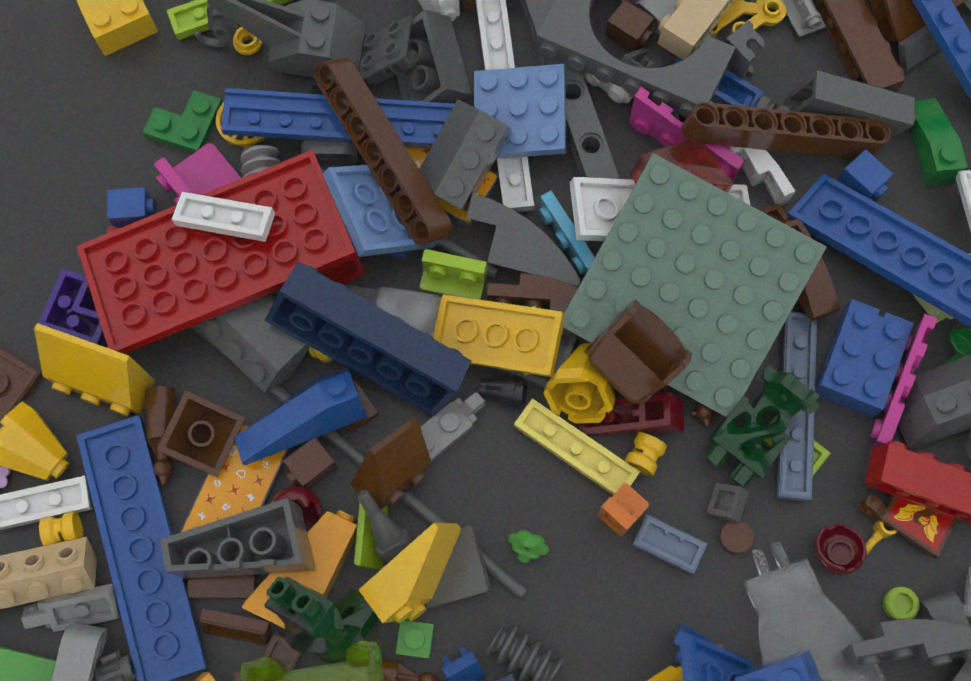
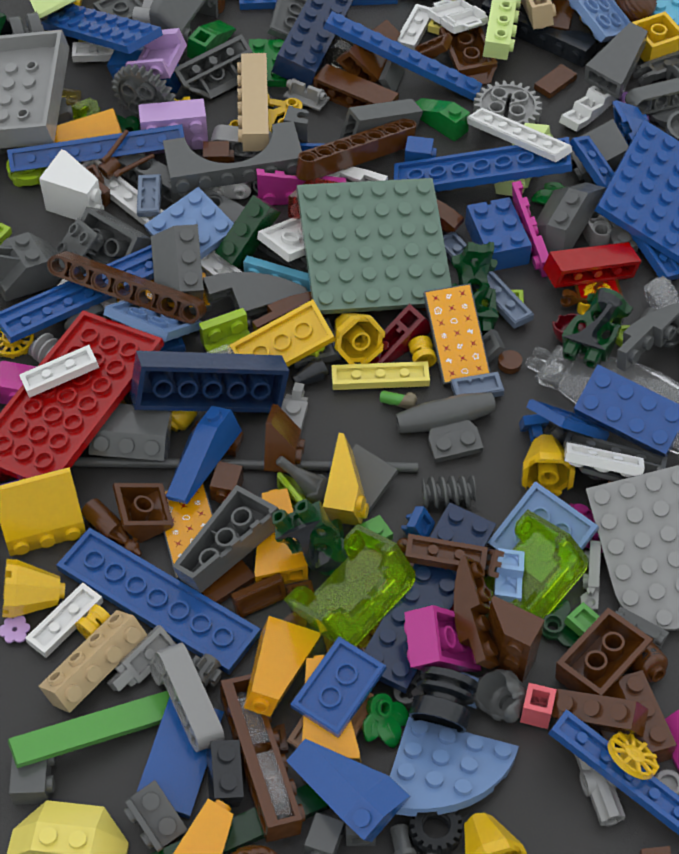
camera: 40 degrees left, 20 degrees down
(508, 35) = (149, 195): none -> sand blue plate
(528, 545) = (398, 441): bright green plant -> none
(568, 494) = (404, 401): none -> arm
(581, 157) = (242, 236): none -> dark green brick
(599, 565) = (449, 423): none -> dark grey plate
(622, 509) = (435, 383): orange slope -> none
(638, 353) = (375, 290): reddish brown piece -> none
(696, 464) = (456, 332): none -> light orange tile
(840, 593) = (609, 312): none -> dark green hips

